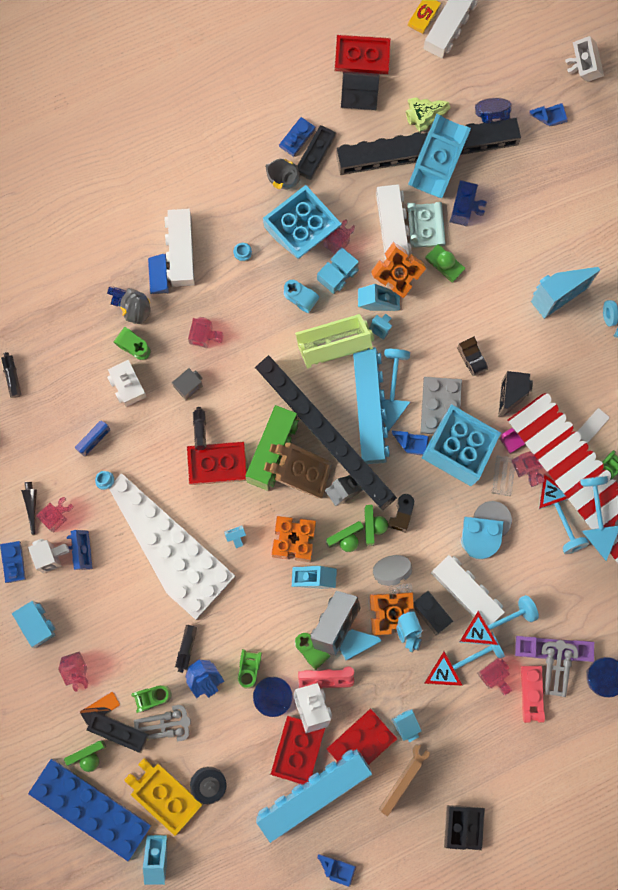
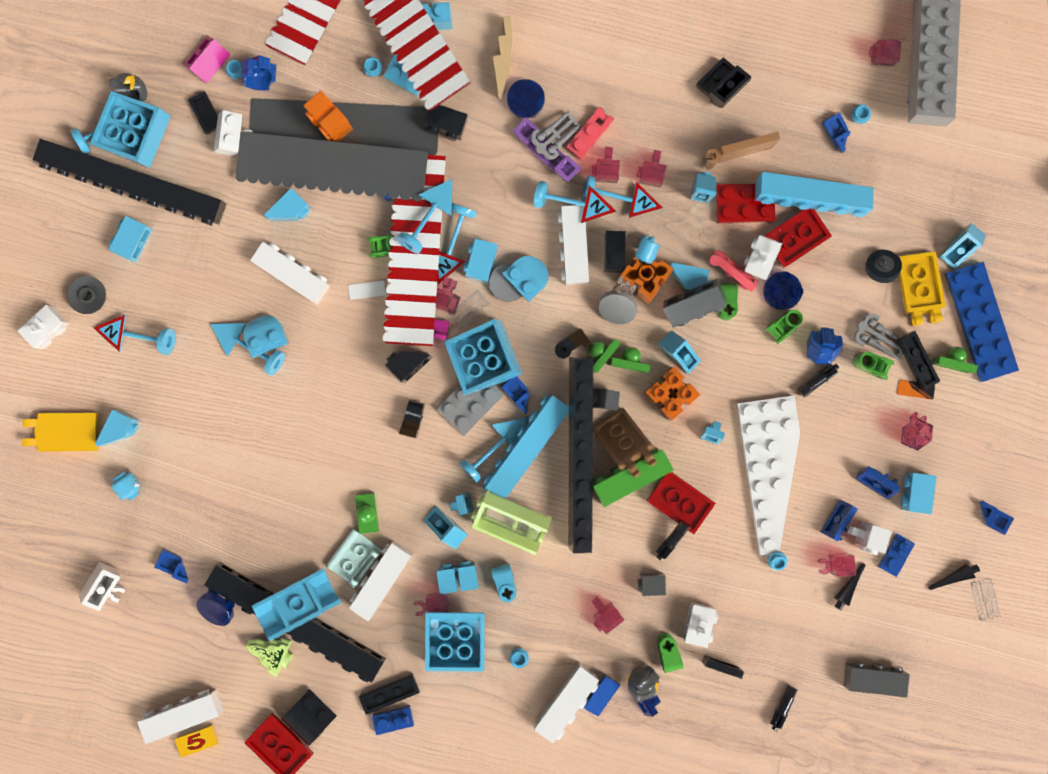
camera: 140 degrees left, 10 degrees up
(73, 605) = (878, 482): none -> blue plate
(83, 367) = (722, 667): none -> black tile
(96, 434) = (760, 602): blue slope -> none
(283, 174) = (433, 697): dark grey hair -> none
(399, 281) = (412, 536): orange brick -> none
(456, 703) = (652, 172): none -> clear pink brick
(465, 204) = (308, 548): clear blue brick -> none
(527, 518) = (481, 260): none -> medium azure brick
(561, 289) = (305, 414): medium azure slope -> none

